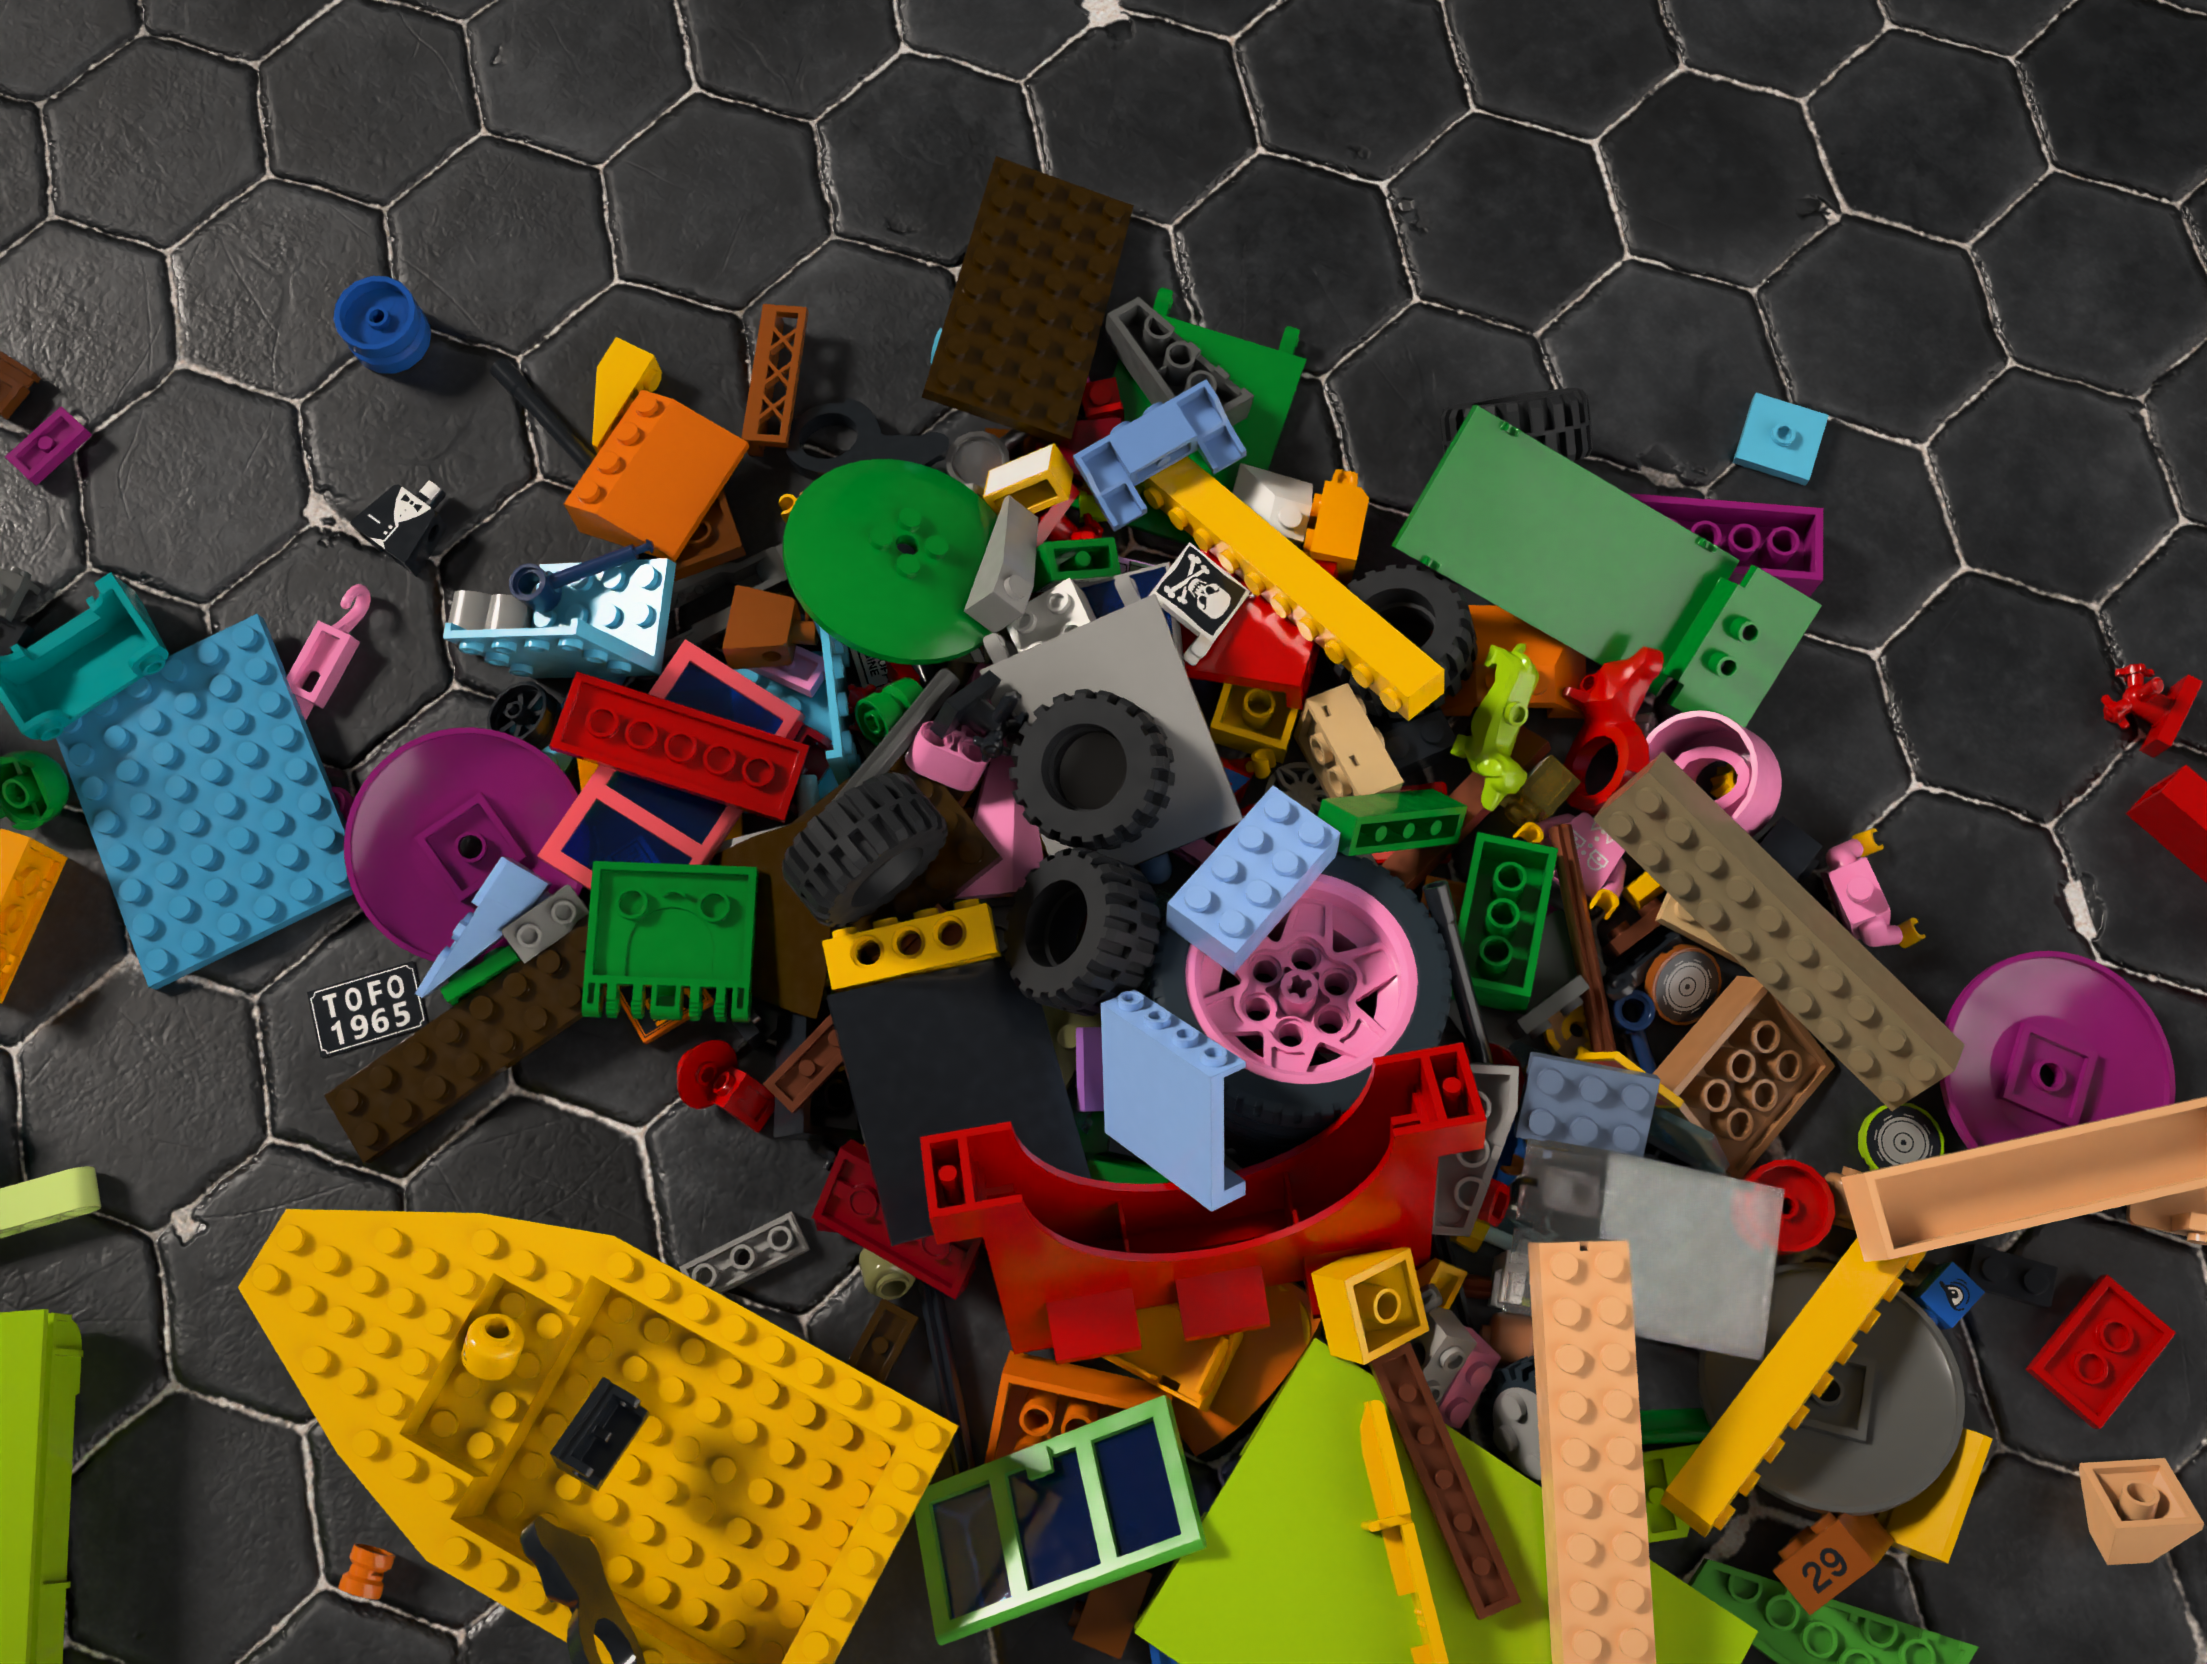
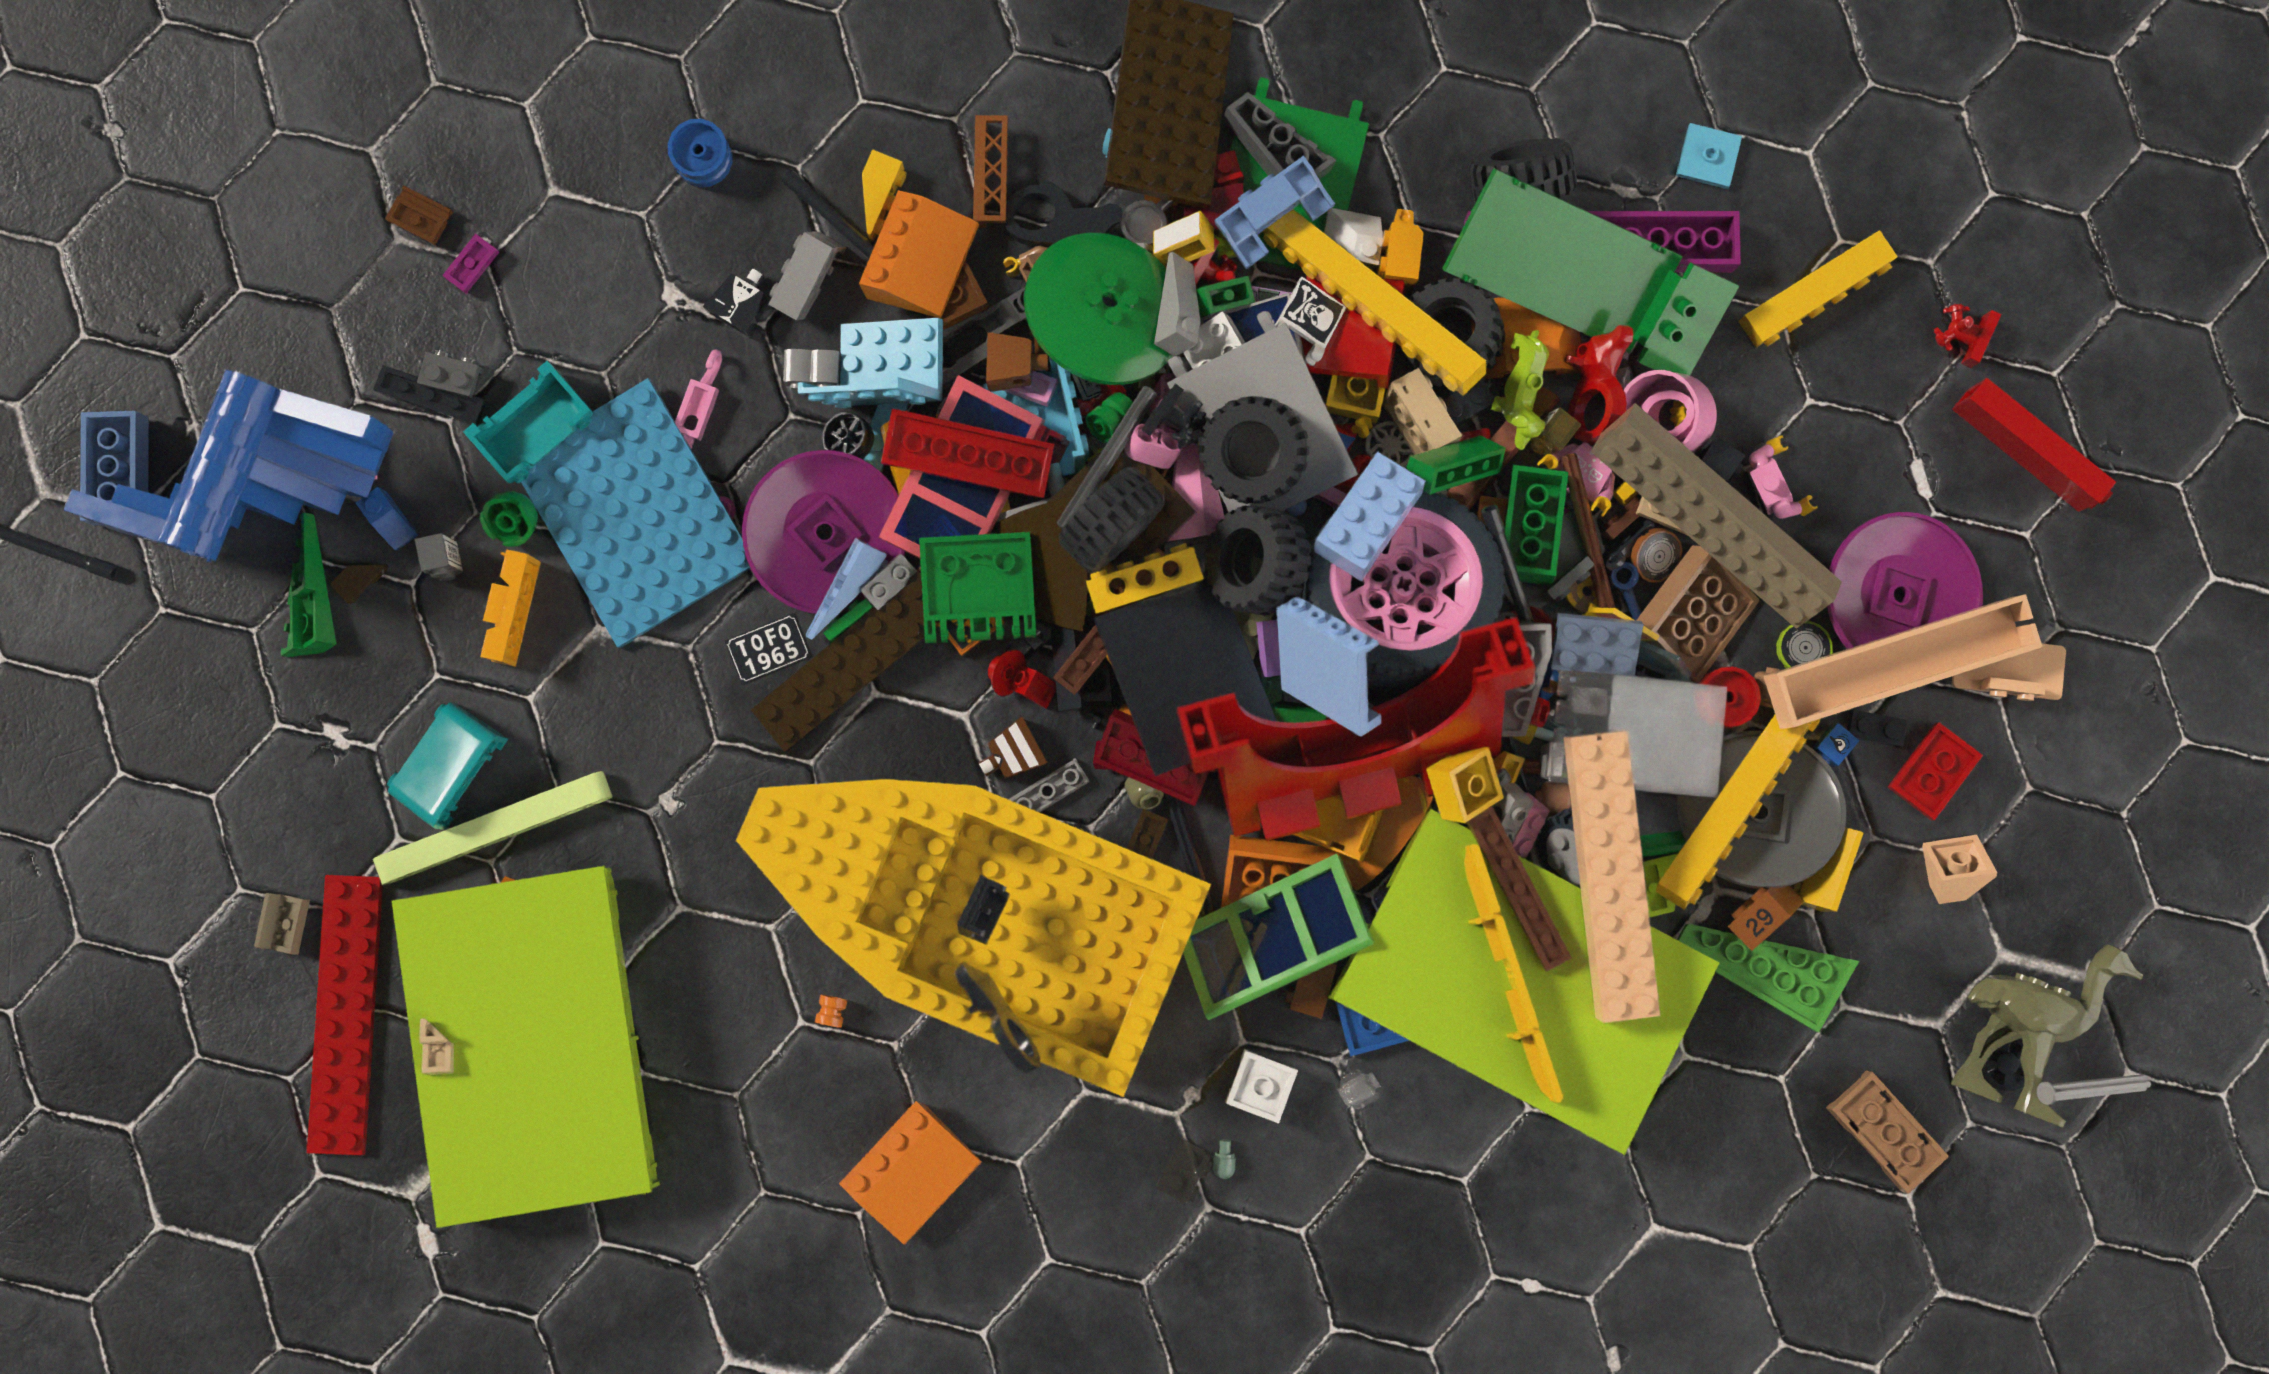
camera: 10 degrees left, 10 degrees up
(492, 1346) = (905, 862): yellow head -> none
(499, 492) = (804, 274): none -> light grey wedge
(550, 591) = (857, 340): dark blue piece -> none
(700, 1192) = (1013, 752): none -> torso
(1932, 628) = (1818, 289): none -> yellow brick

